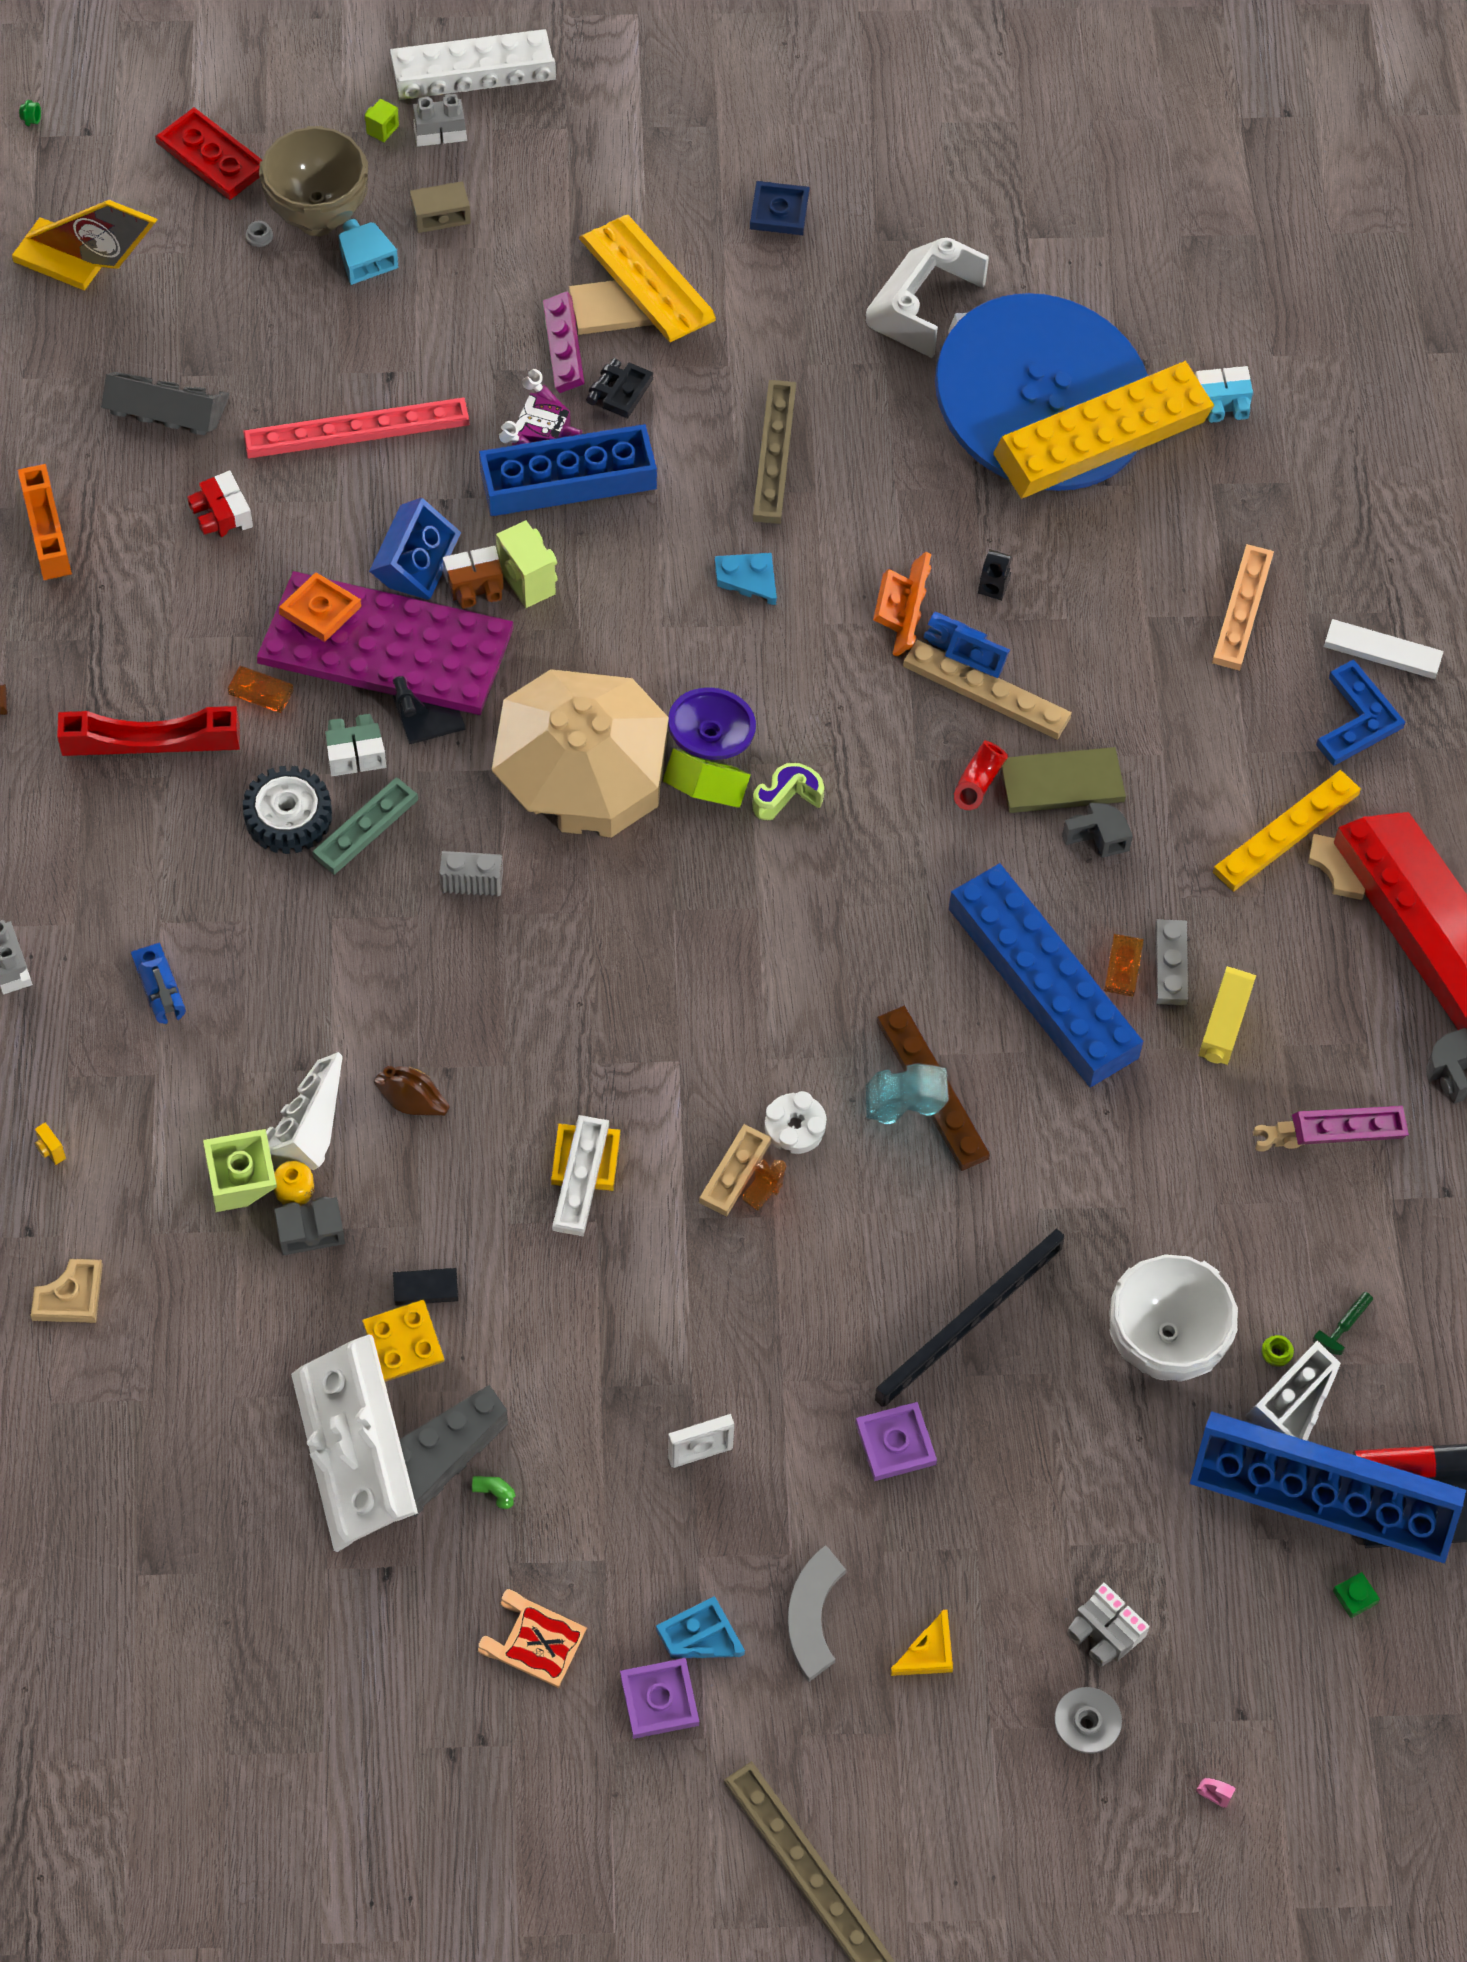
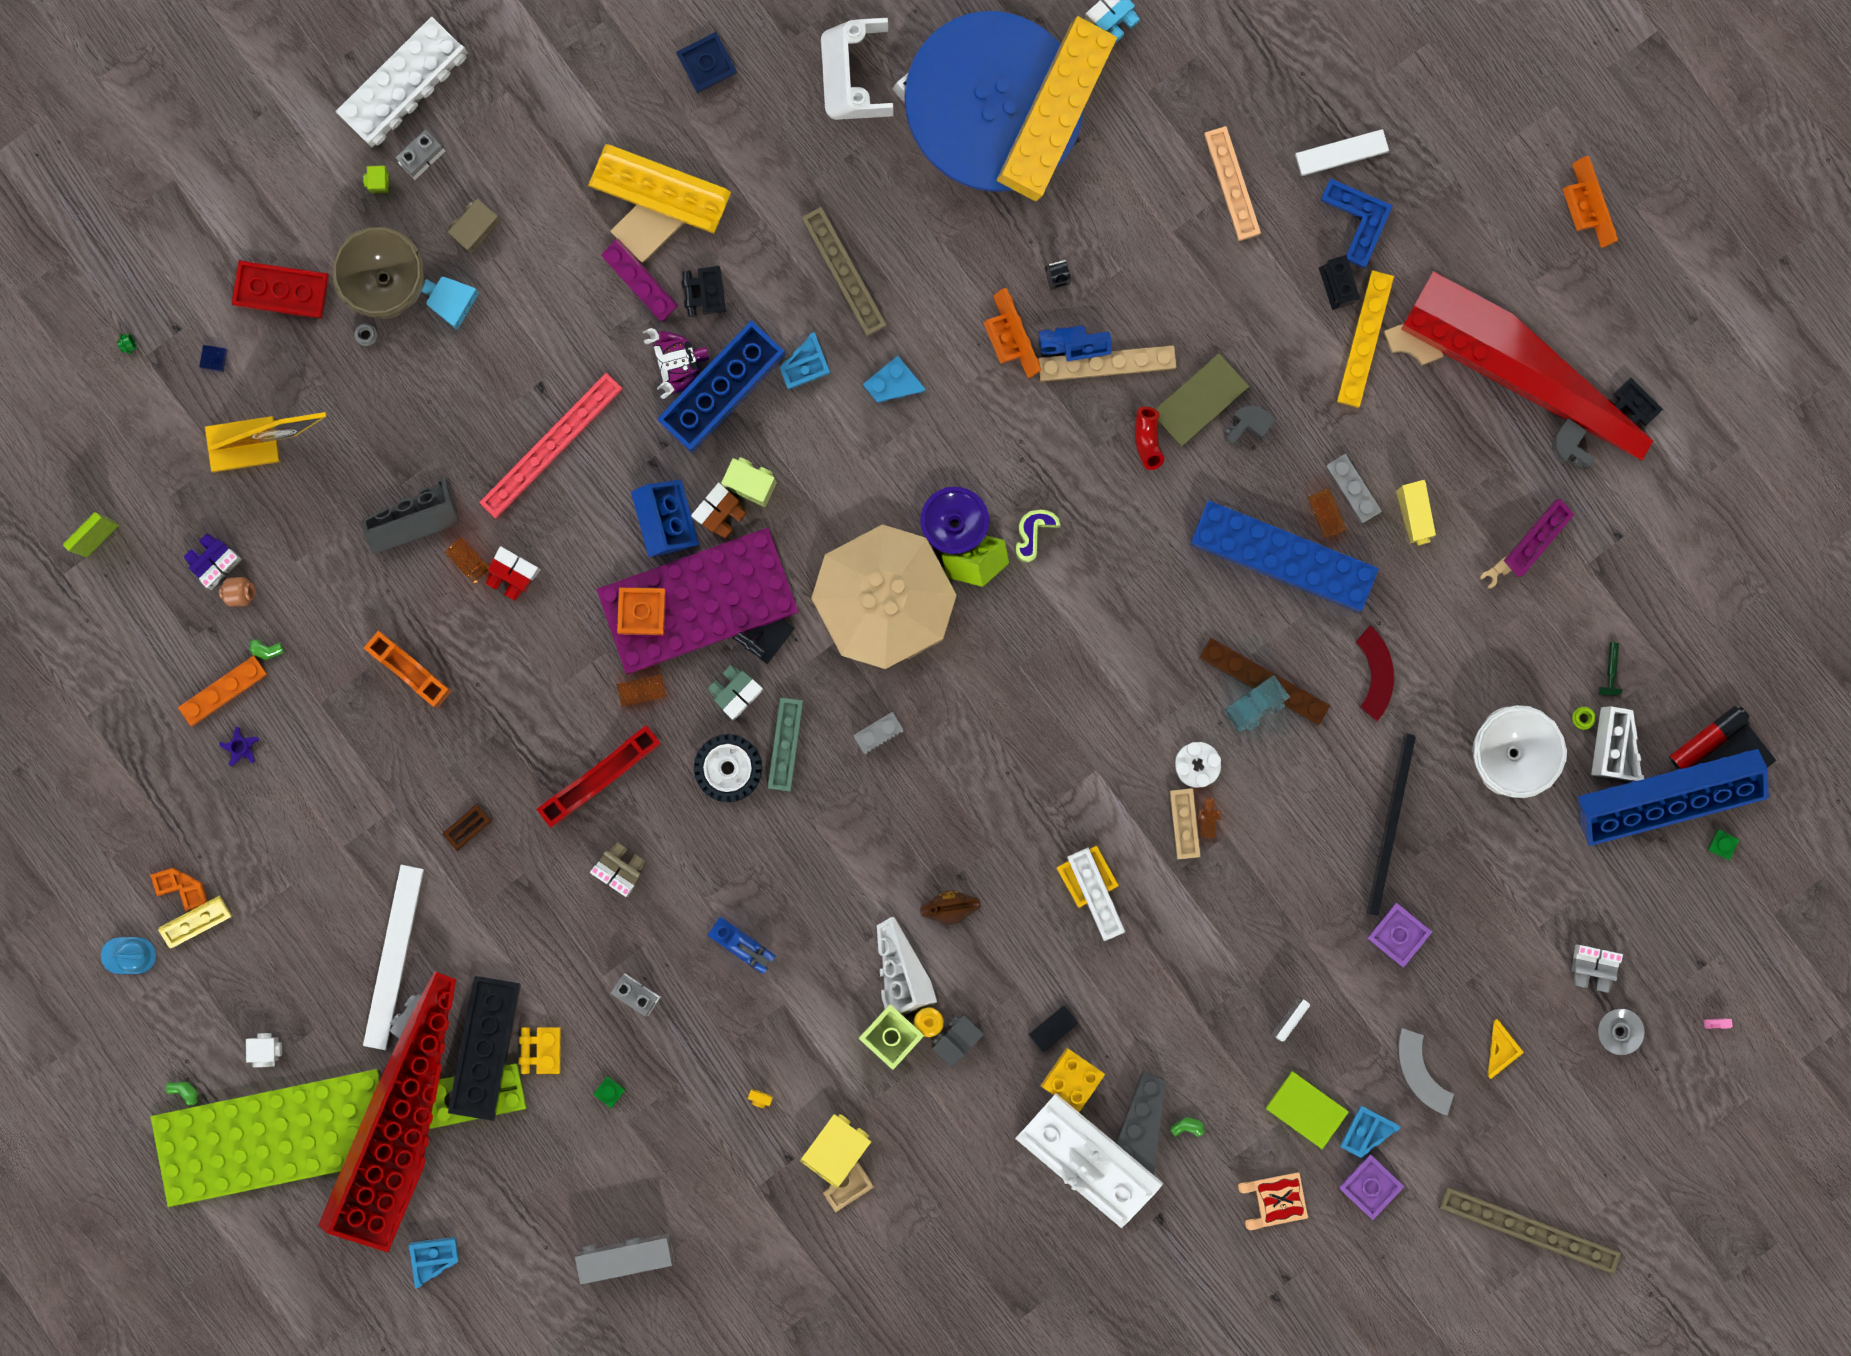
camera: 30 degrees left, 25 degrees up
(83, 1244) = (836, 1150): none -> light yellow panel
(90, 834) = (610, 865): none -> dark tan hips
(99, 171) = (213, 358): none -> clear blue plate
(187, 456) = (467, 559): none -> clear orange torso
(647, 1564) = (1306, 1110): none -> lime tile
(669, 505) = (805, 364): none -> dark azure wing
(1071, 1160) = (1381, 672): none -> dark red tile
(1295, 758) = (1339, 282): none -> black window

